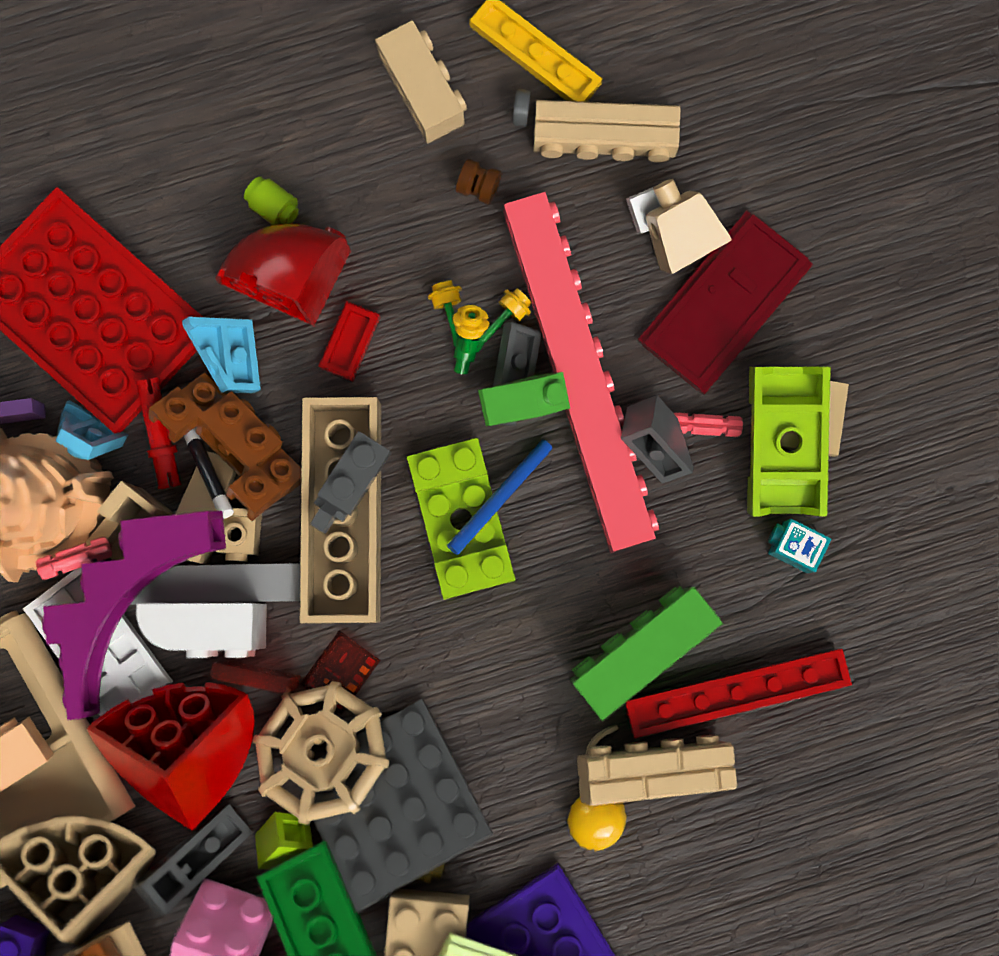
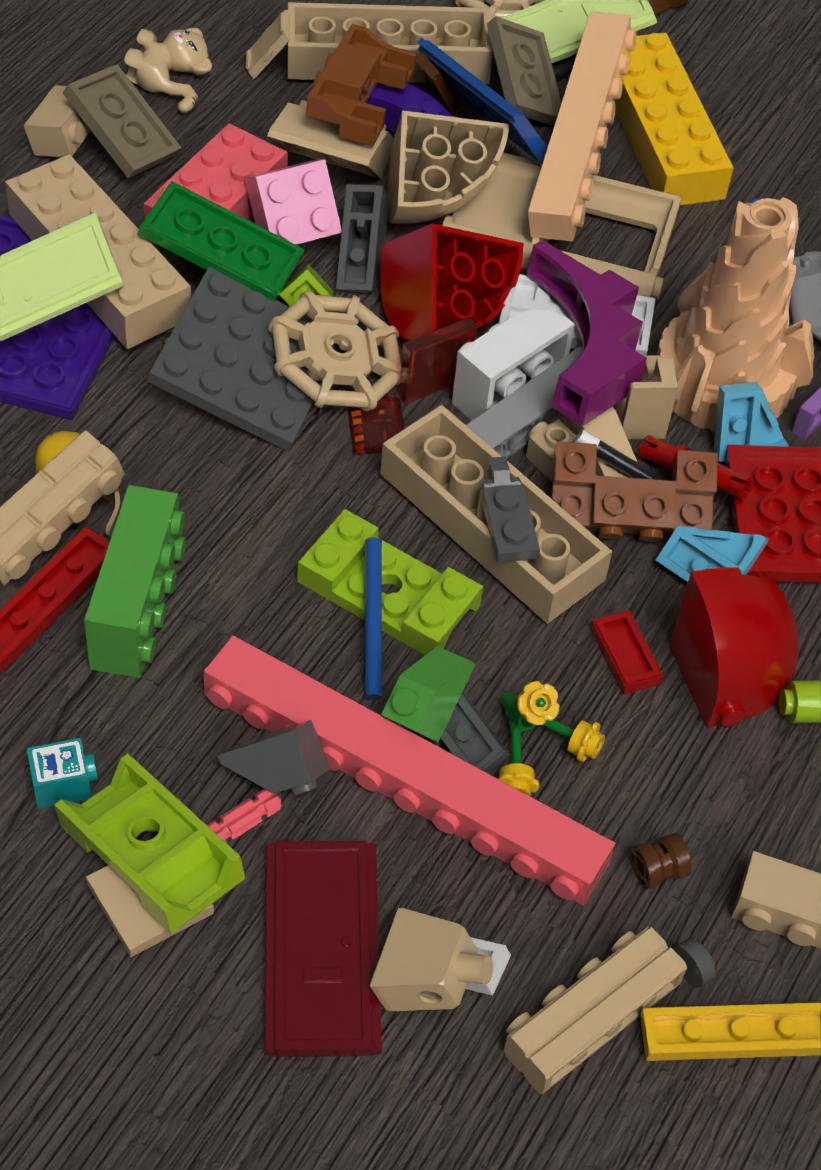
camera: 130 degrees right, 30 degrees down
(73, 557) = (656, 332): coral axle -> none

